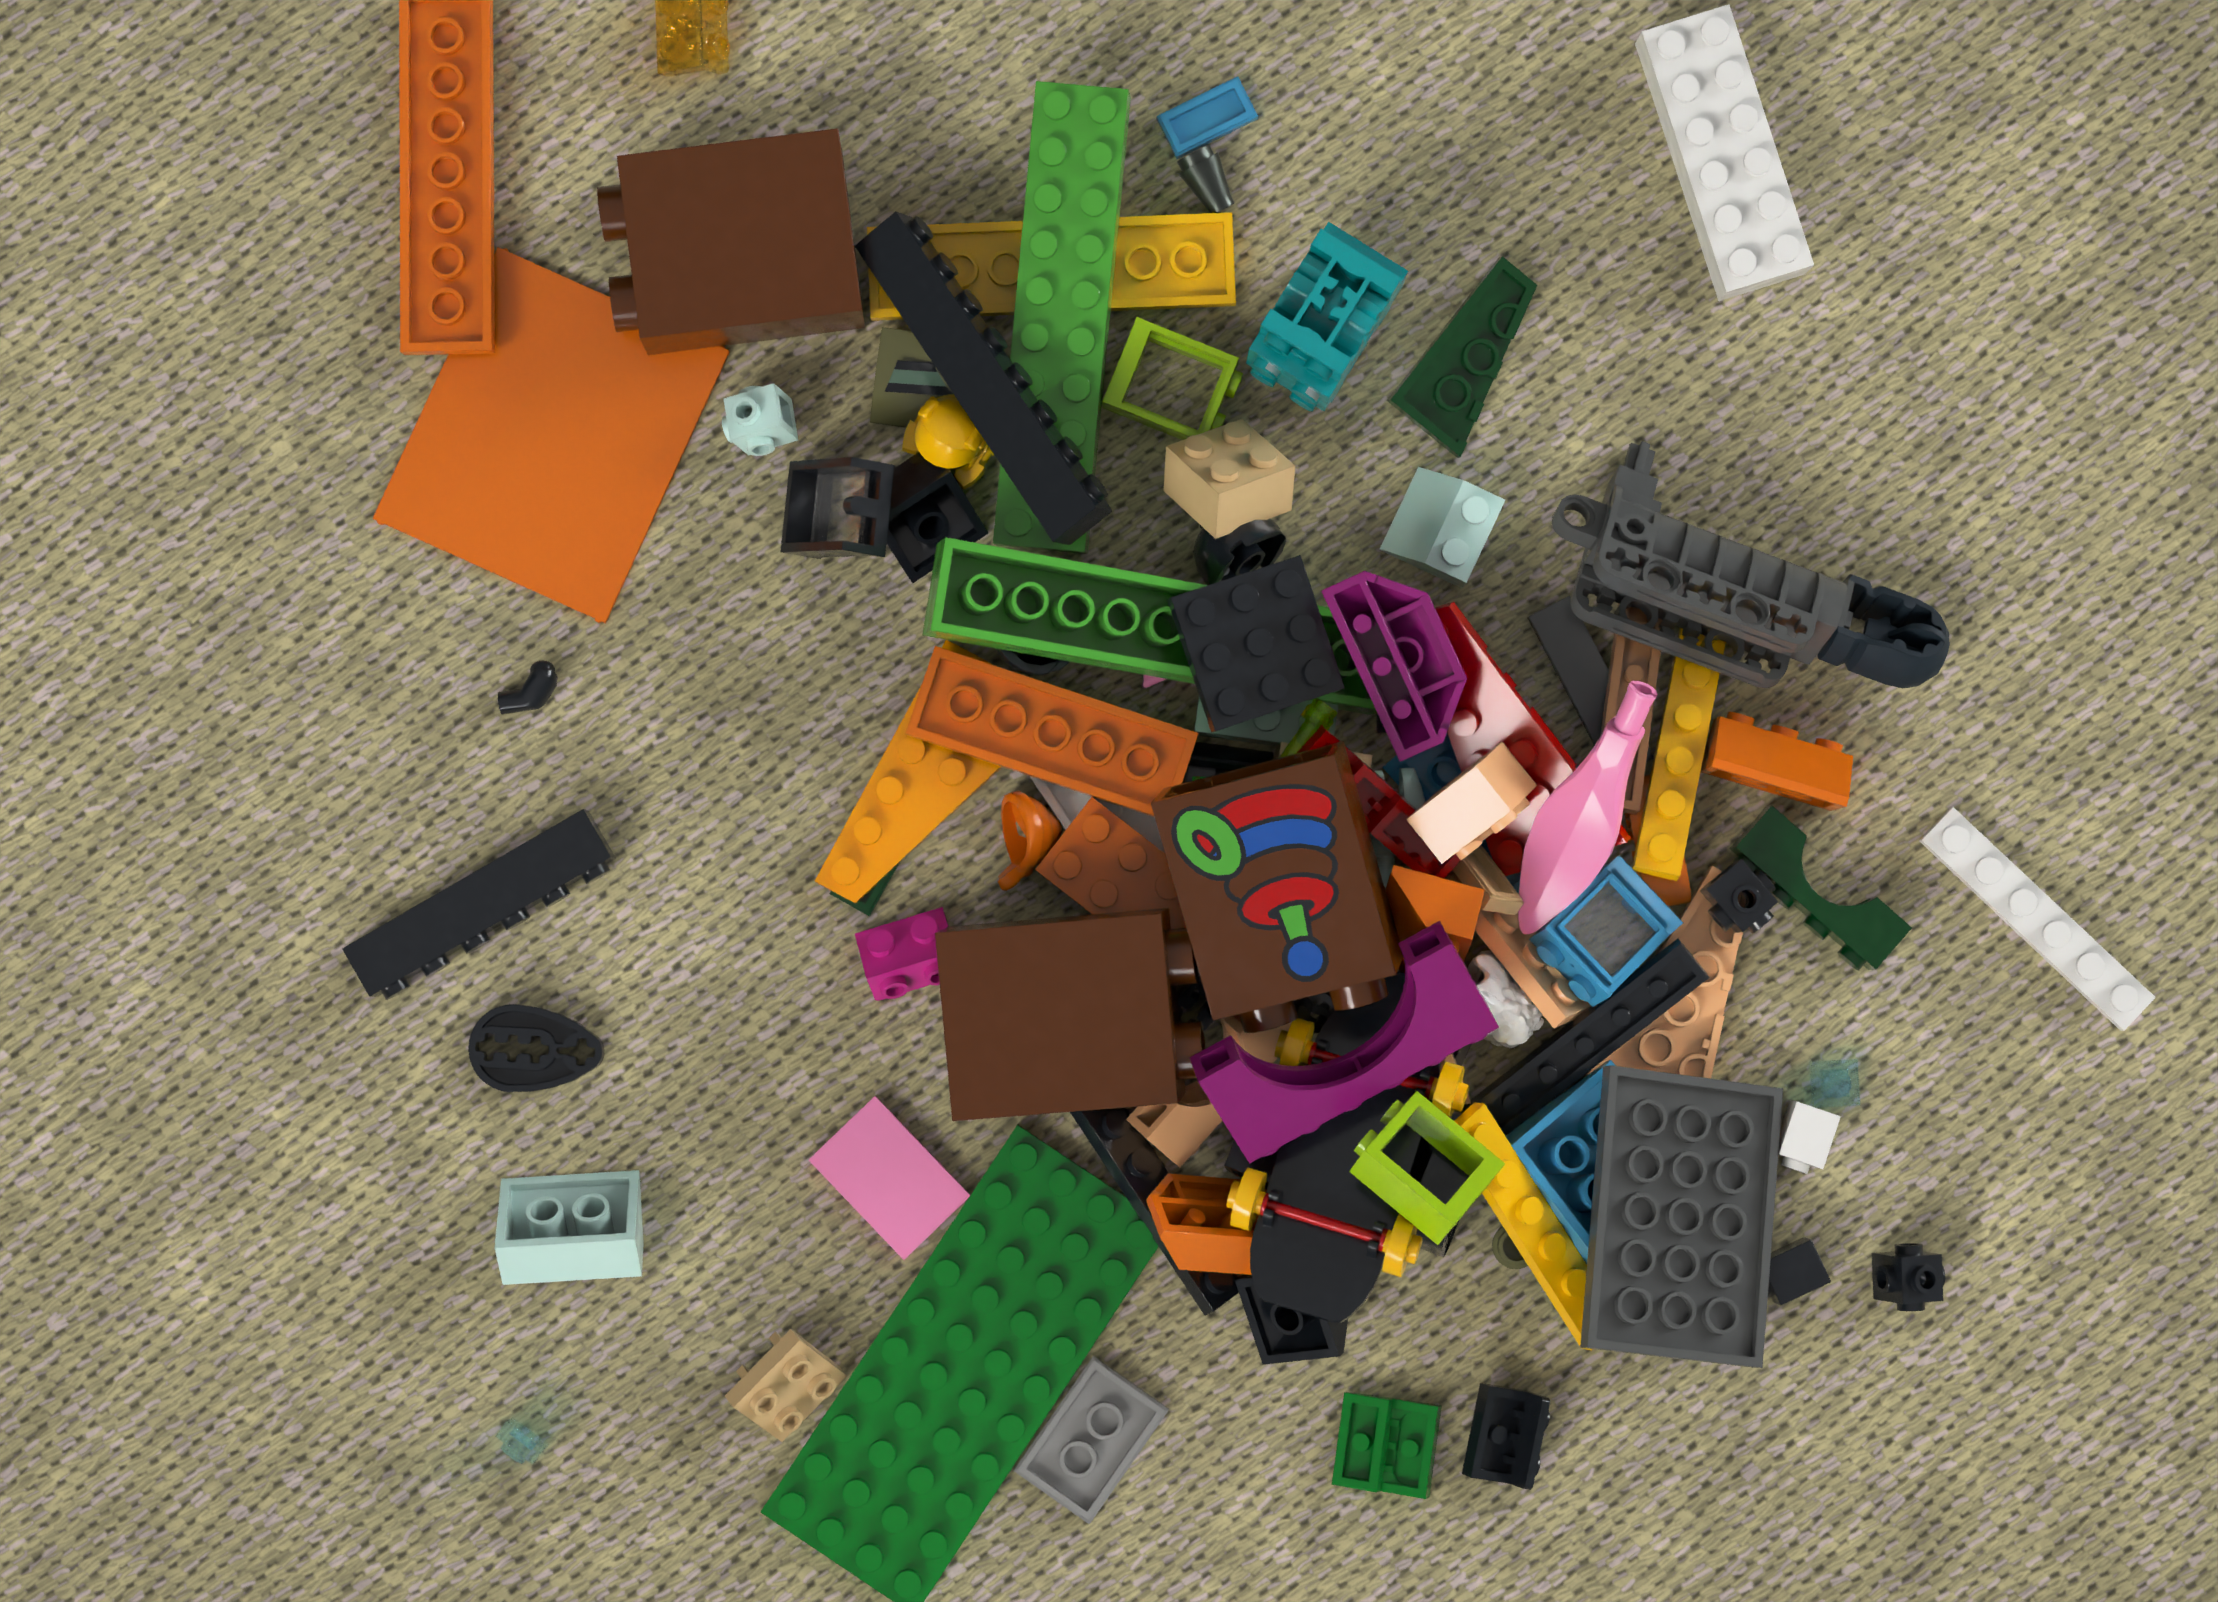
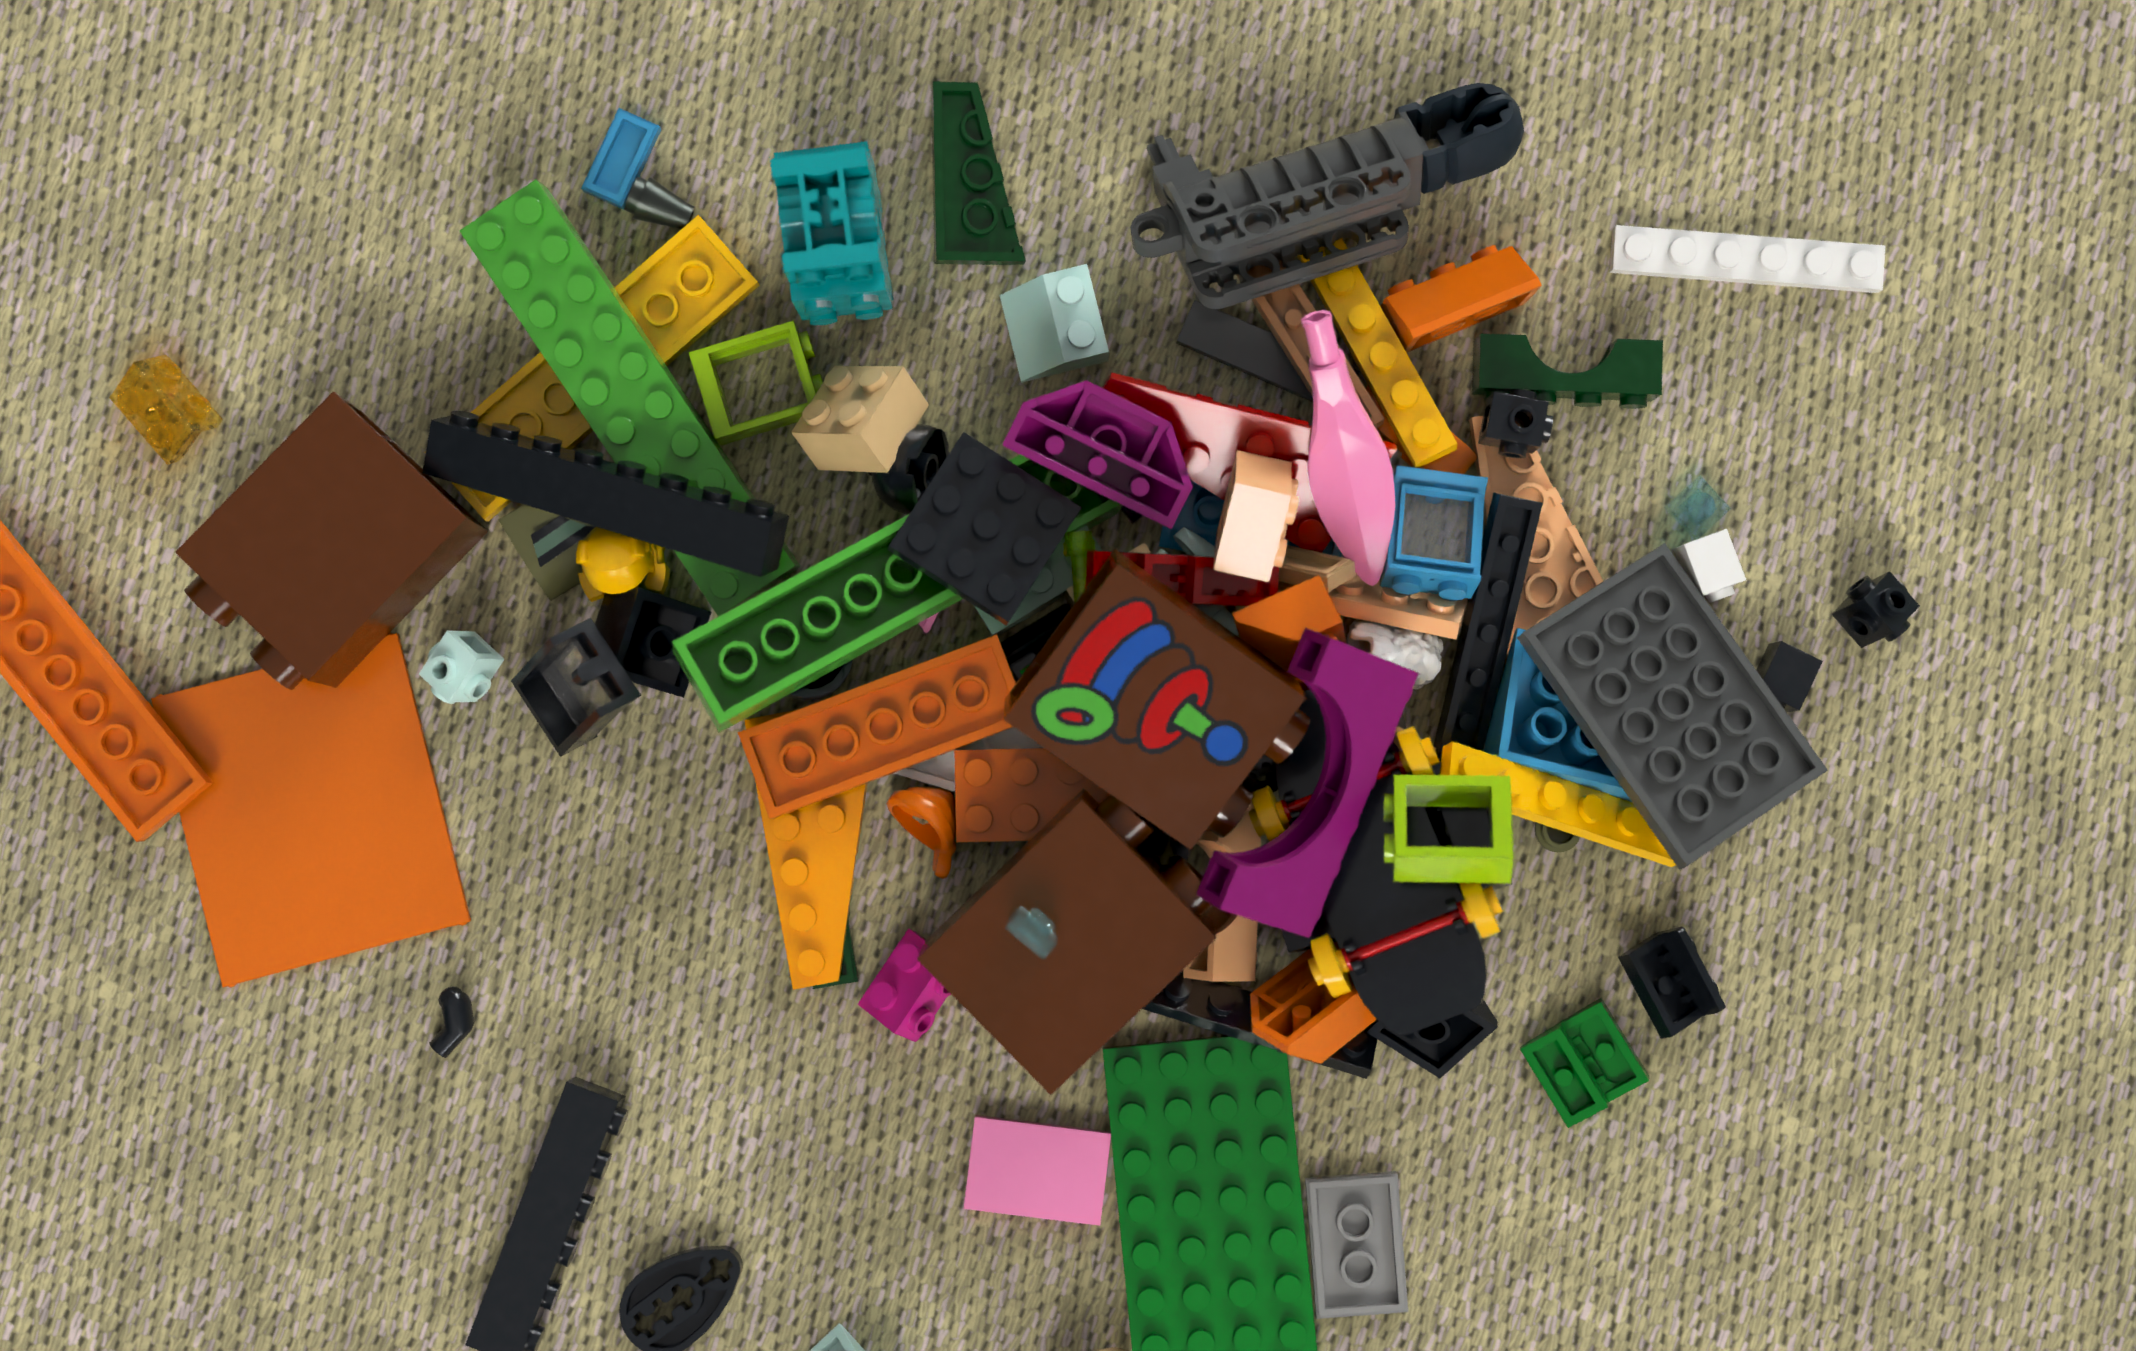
camera: 40 degrees left, 0 degrees up
(1043, 982) = (1033, 930): none -> clear light blue plate

